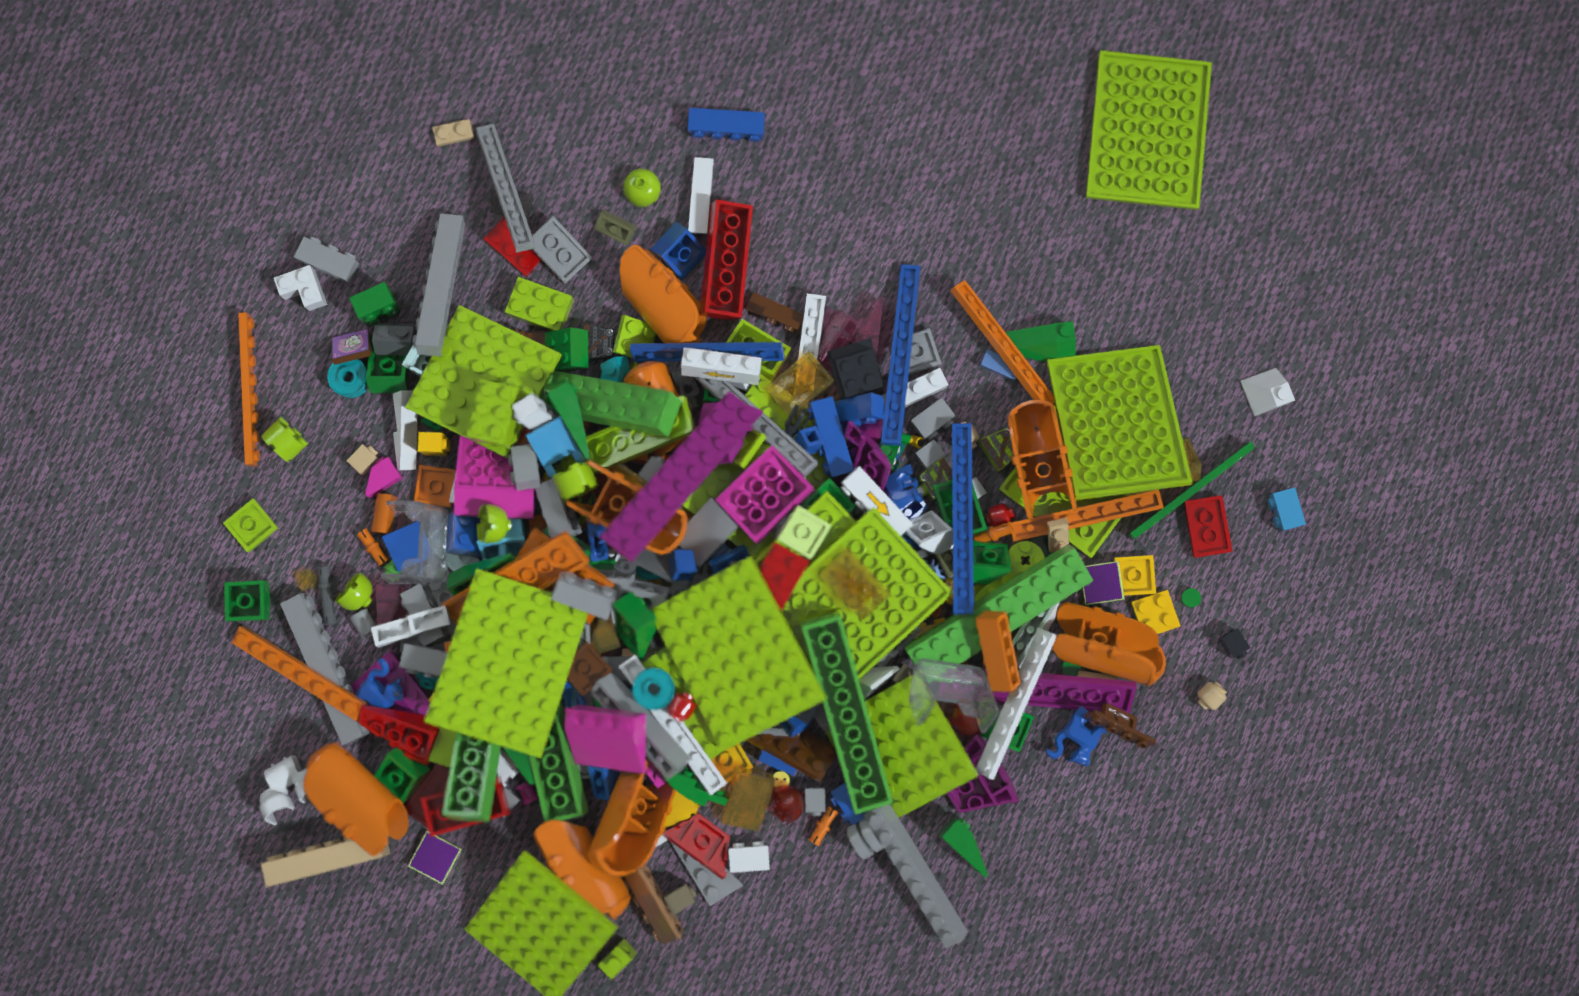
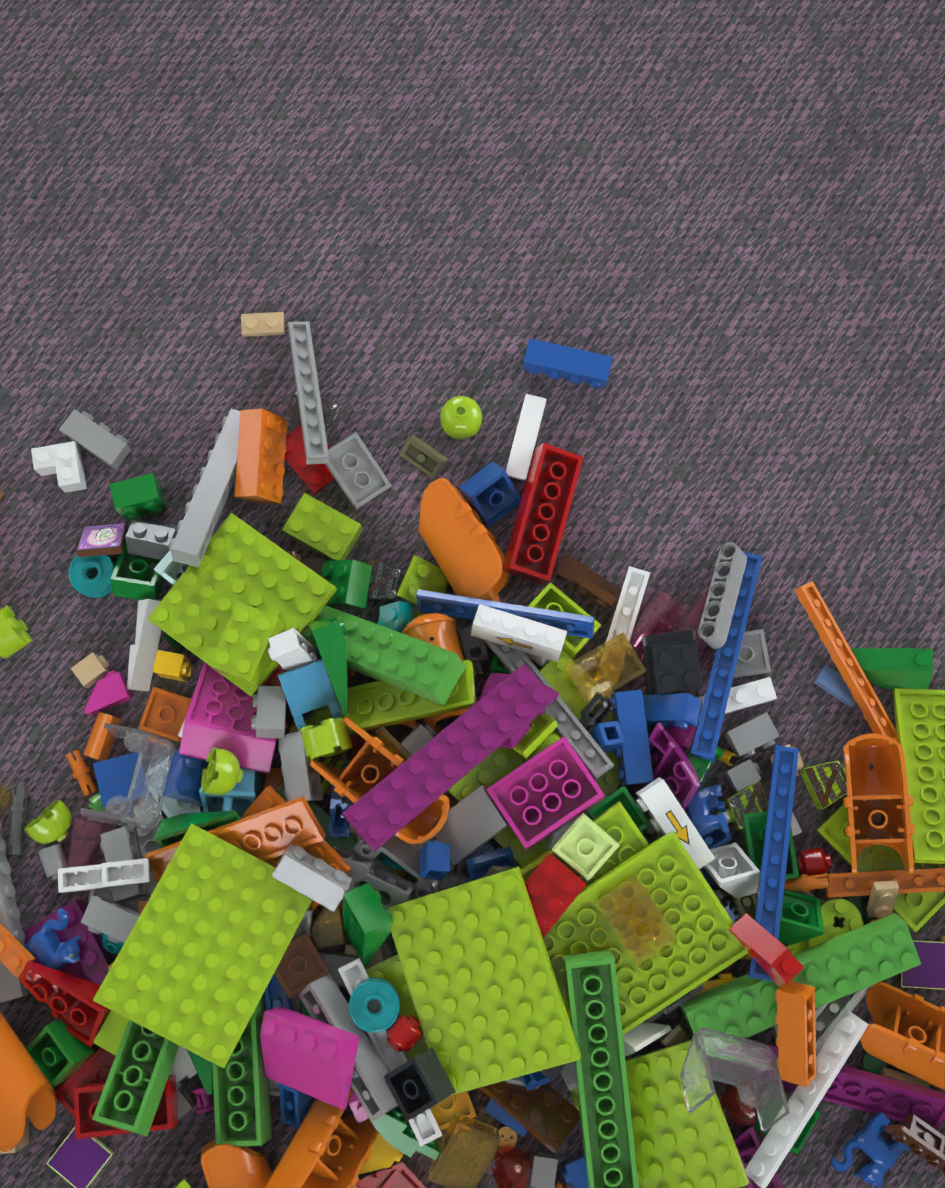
camera: 15 degrees right, 5 degrees down
(474, 252) = (260, 457): none -> orange brick
(700, 742) = (419, 1084): none -> black brick
(890, 305) = (722, 595): none -> light grey beam
(963, 589) = (766, 950): none -> slope

